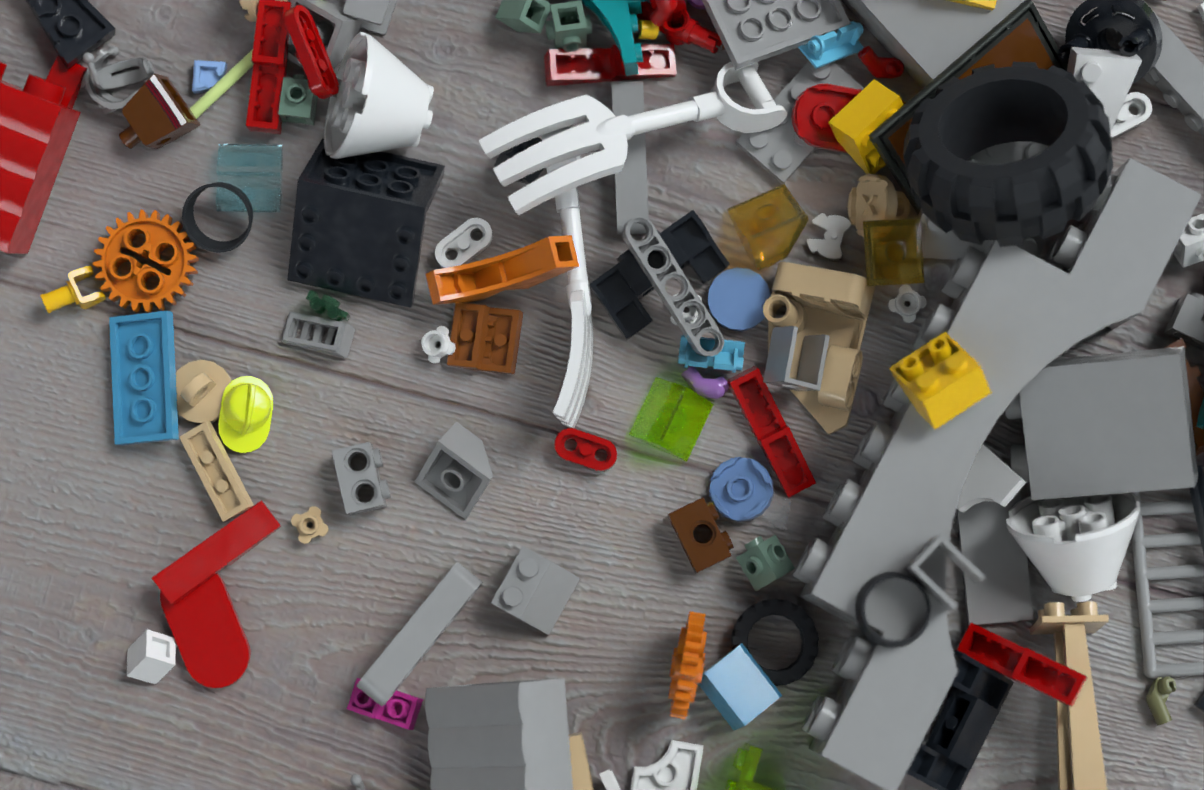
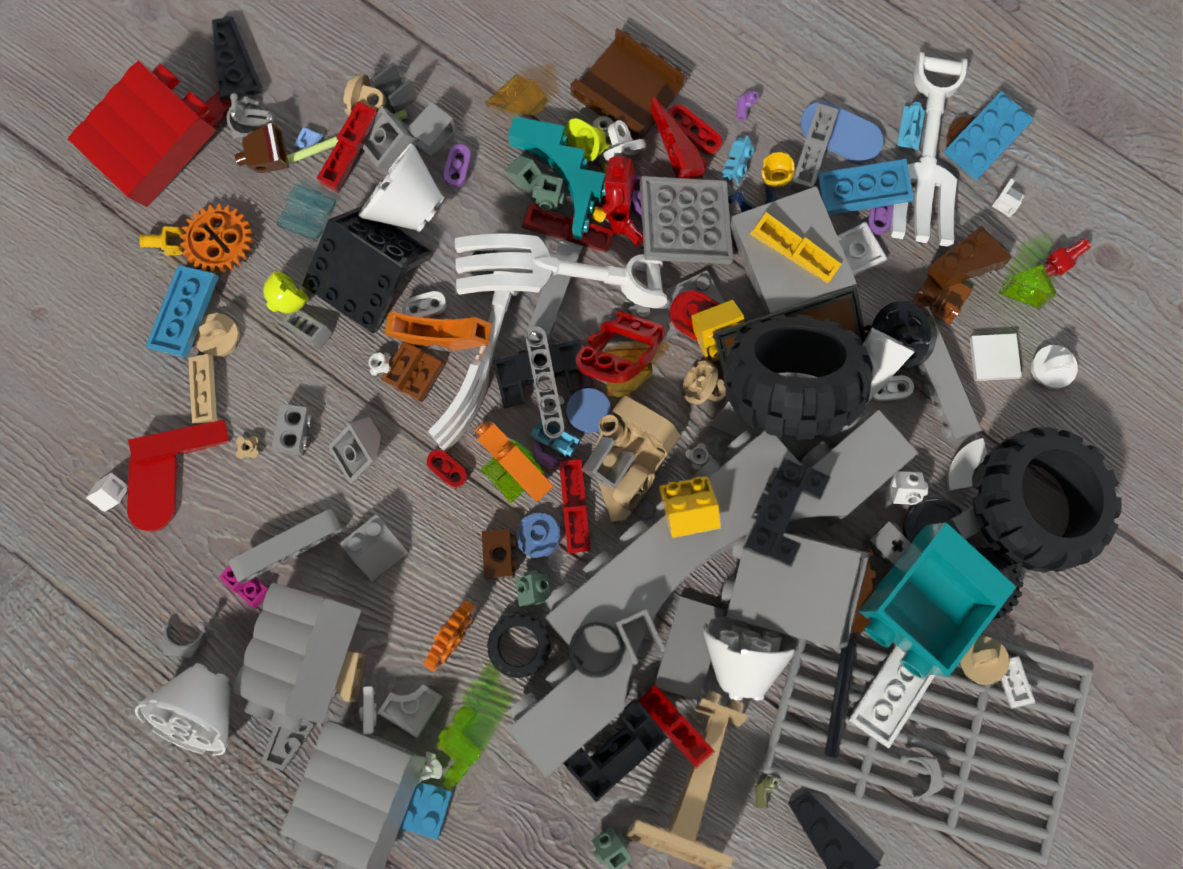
camera: 20 degrees right, 5 degrees down
(199, 237) = (254, 227): black tyre -> none
(245, 414) = (237, 360): neon yellow piece -> none
(270, 302) = (283, 294): none -> neon yellow cylinder
(297, 101) = (357, 175): sand green brick -> none
(311, 52) = (376, 146): red plate -> none
(327, 304) = (318, 311): clear green piece -> none
(427, 36) = (457, 167): none -> medium lavender plate
(670, 404) = (512, 459): none -> orange arch
(738, 687) = (480, 665): slope -> none
(750, 233) = (611, 368): none -> red slope
(833, 46) = (715, 270): medium azure hinge -> none
(835, 227) = (663, 399): white piece -> none
(880, 66) = (742, 296): red arm -> none
(893, 252) = (700, 417): clear yellow slope -> none
(989, 481) = (700, 591): white tile -> none
(1053, 339) = (777, 508): none -> black bracket

